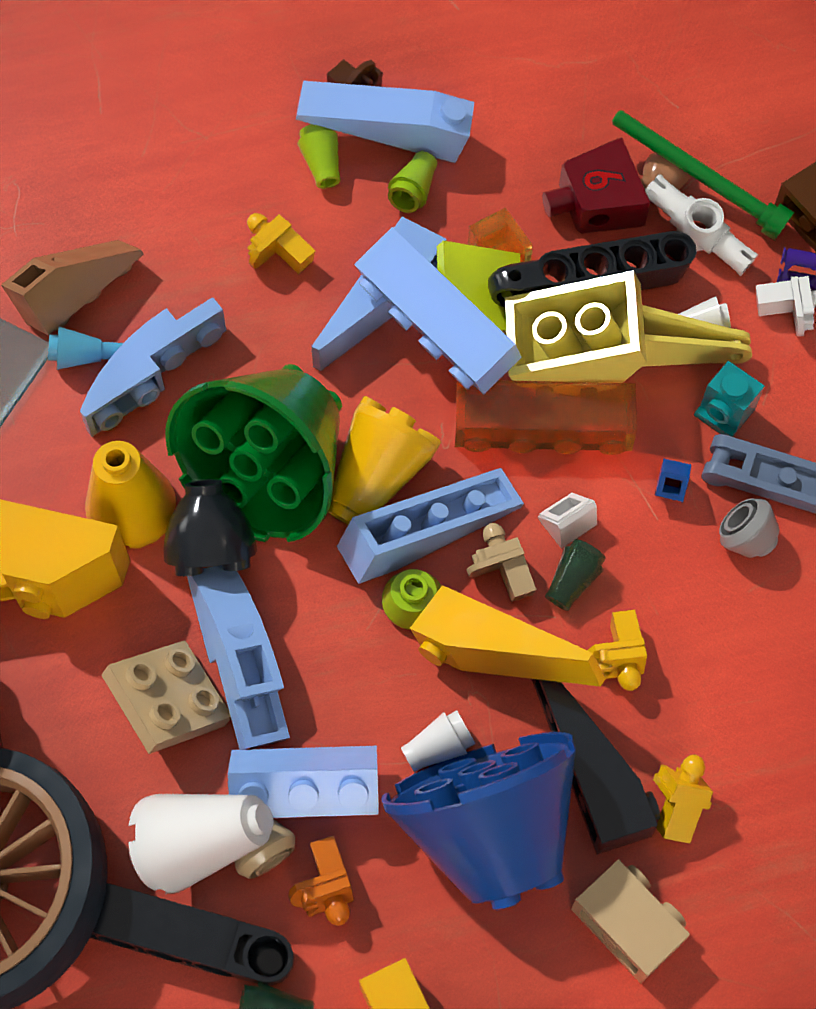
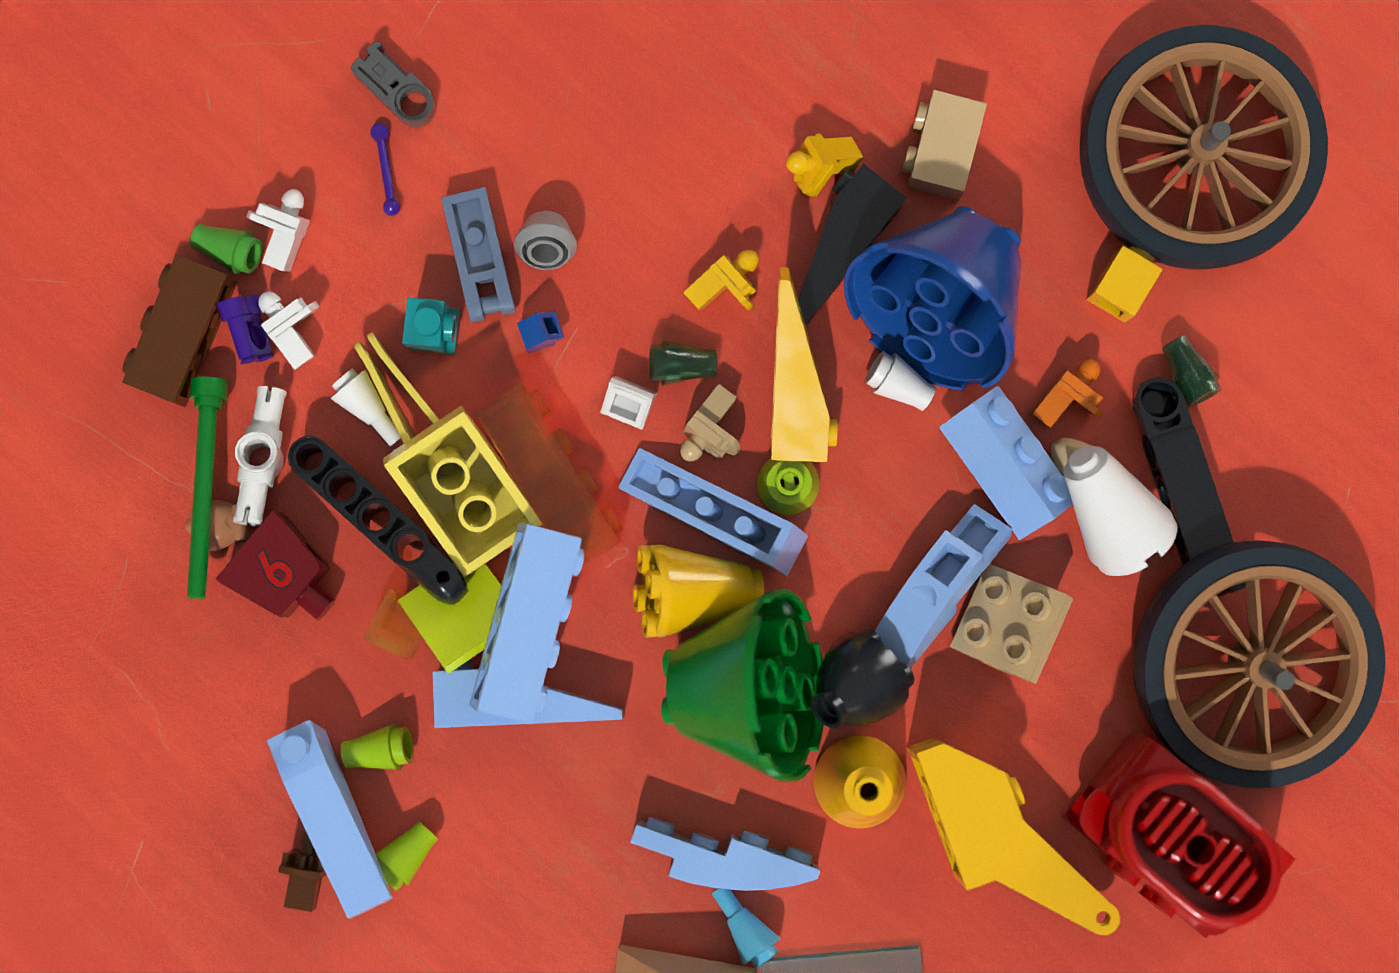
camera: 120 degrees left, 20 degrees up
(277, 238) = (521, 835): yellow piece -> none

